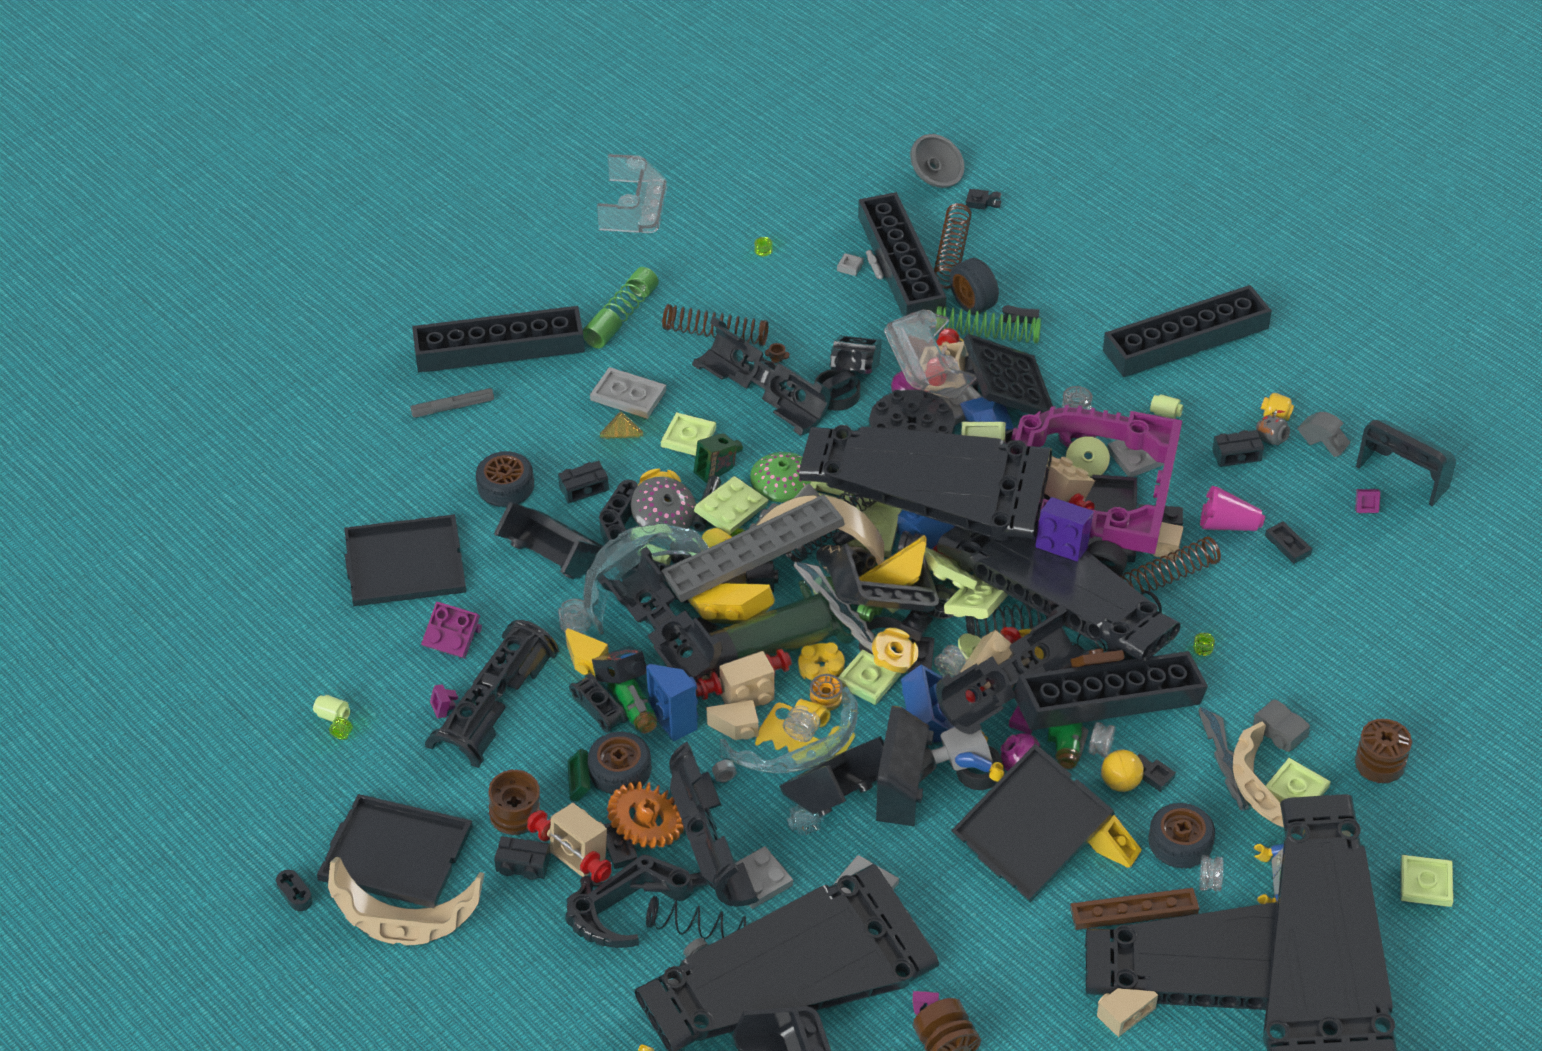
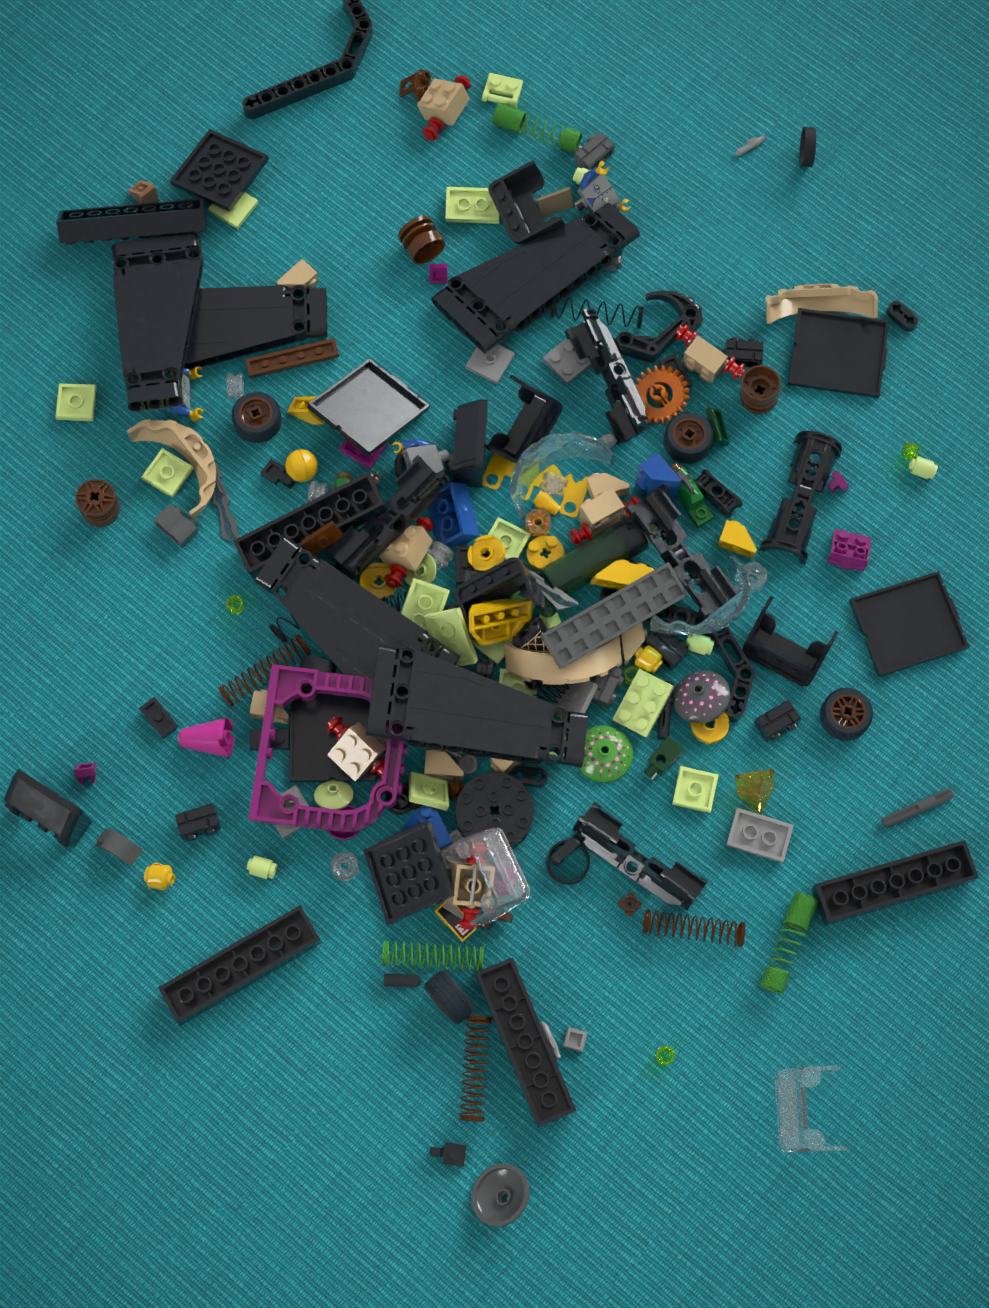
camera: 170 degrees right, 25 degrees up
(626, 662) = (703, 519): black torso -> none
(695, 946) = (603, 294): dark grey tile -> none
(855, 354) = (557, 878): black brick -> none
(1015, 748) = (376, 469): magenta piece -> none
(1064, 529) = (353, 659): dark purple brick -> none
(1273, 430) = (165, 847): dark grey head -> none

